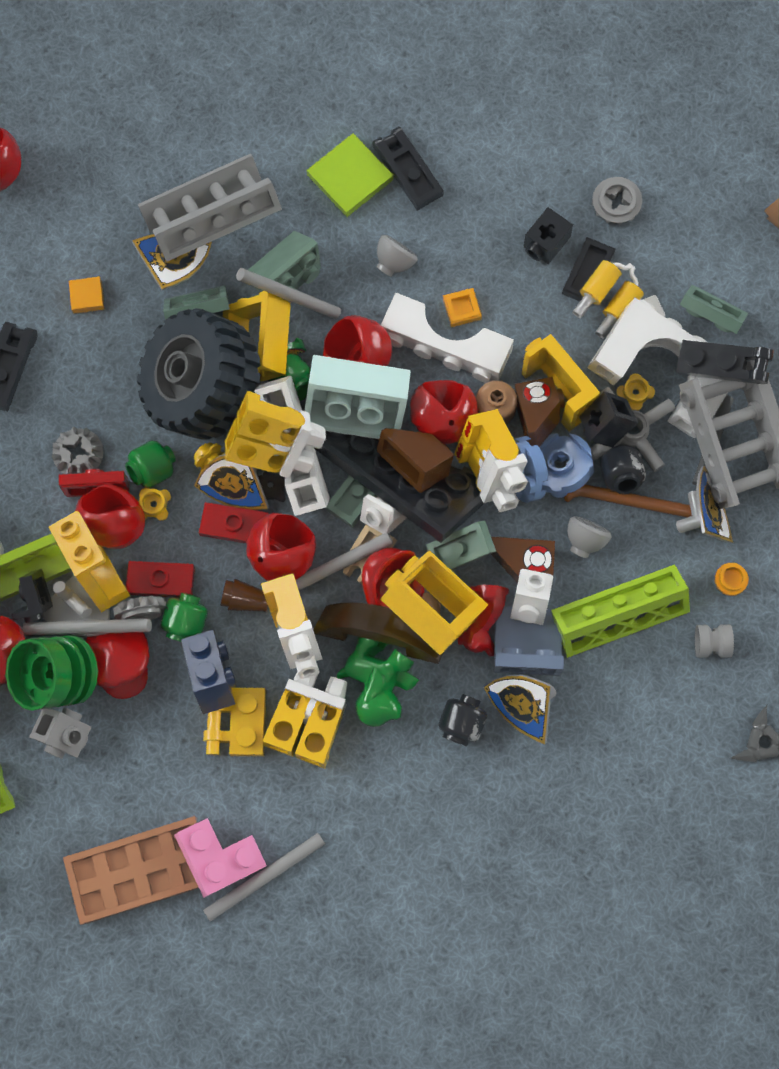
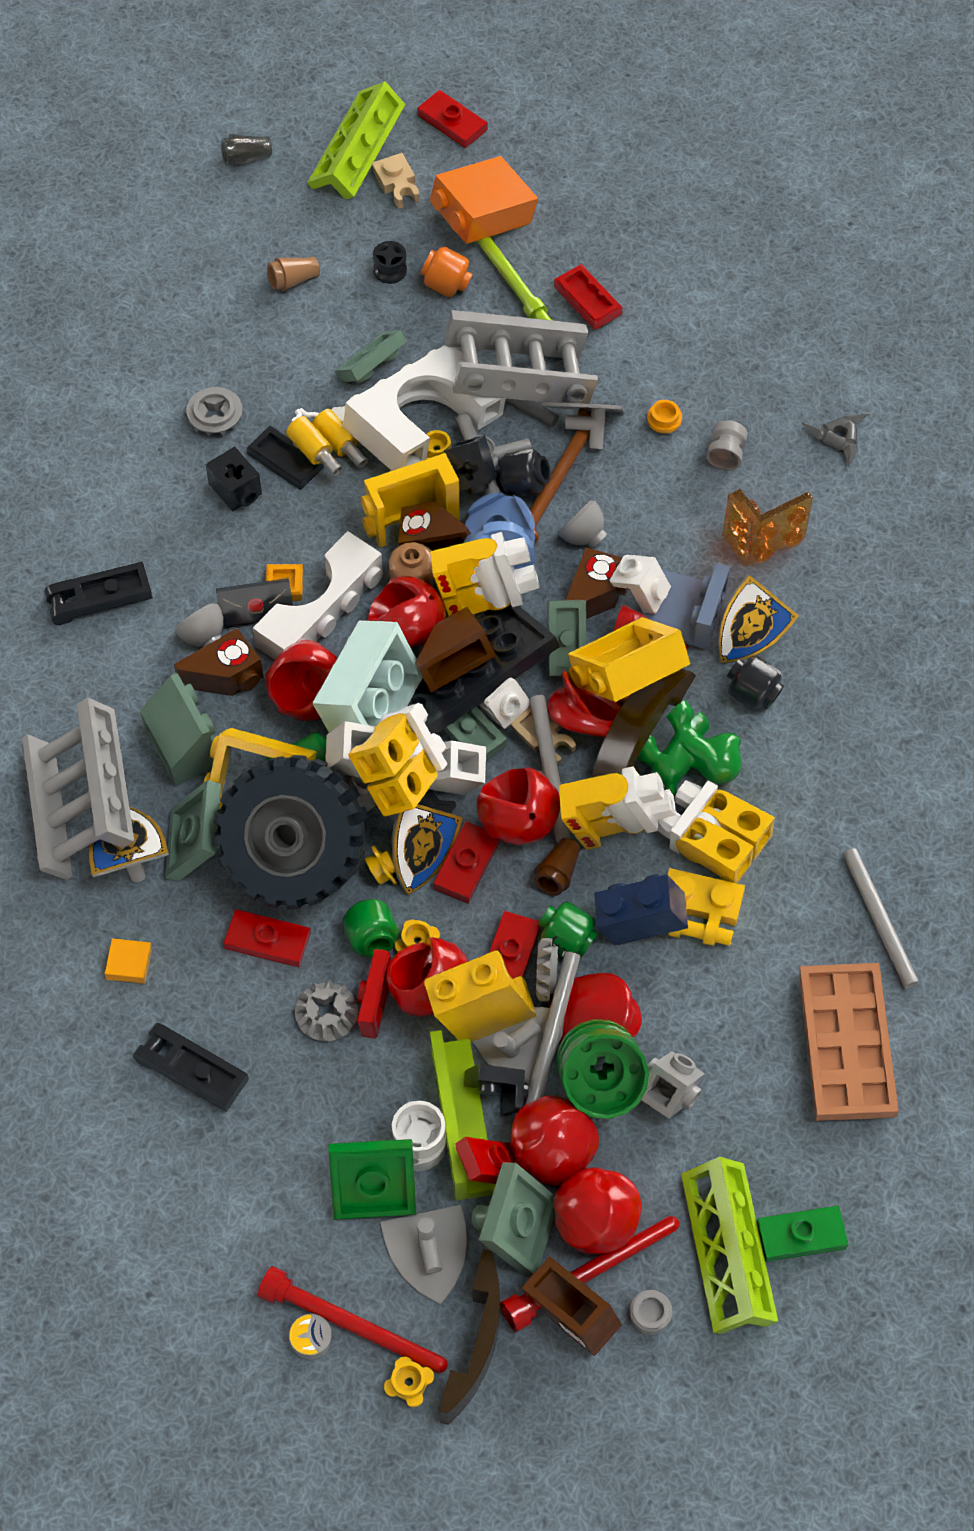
camera: 80 degrees left, 15 degrees down
(125, 397) = (267, 938): none -> red plate
(214, 866) = (857, 955): bright pink plate -> none
(288, 293) = (222, 721): light grey bar -> none
(350, 175) = (82, 653): lime tile -> none
(363, 283) = (222, 666): none -> reddish brown slope
(431, 289) = (252, 601): none -> black tile
(612, 695) = (760, 535): none -> clear orange bracket
(621, 607) = (672, 512): lime fence -> none
(724, 361) = (446, 342): black plate -> none

